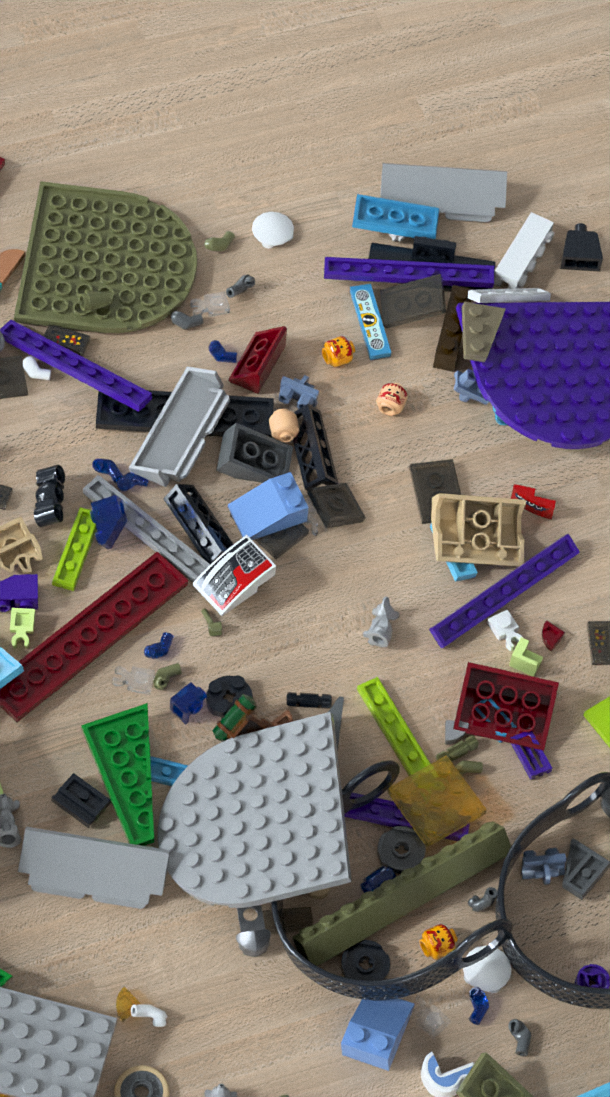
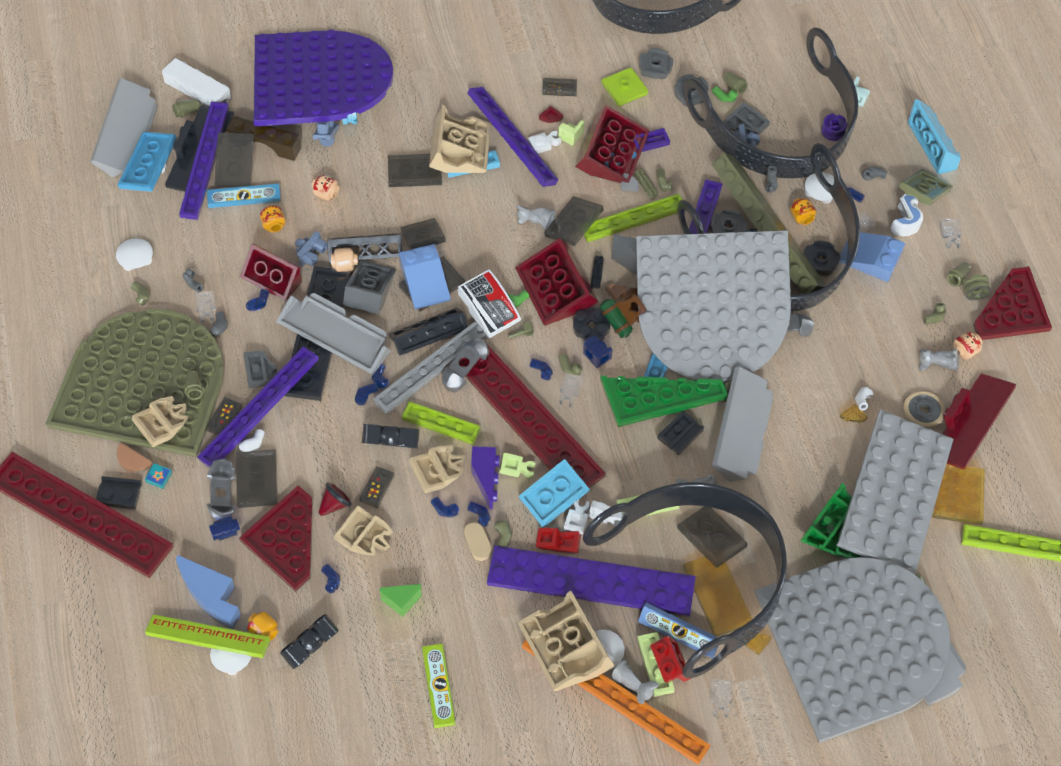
camera: 80 degrees left, 0 degrees up
(46, 276) = (160, 420): none -> tan plate
(109, 518) = (423, 389): clear blue slope -> none
(129, 362) = (258, 369): none -> dark grey wing
(167, 565) = (454, 375): none -> flat silver piece
(254, 611) = (518, 299): none -> bright green arm
(284, 654) = (556, 283): none -> dark red slope
(381, 667) = (574, 220): none -> clear smoke tile
(436, 801) = (697, 189): clear yellow plate -> none
(479, 329) = (286, 107): dark tan wing -> none
(487, 246) = (185, 107): none -> olive cone
(509, 295) = (243, 94): white tile -> none
(536, 505) = (432, 109): red slope -> none
(582, 250) = (201, 48): black torso -> none

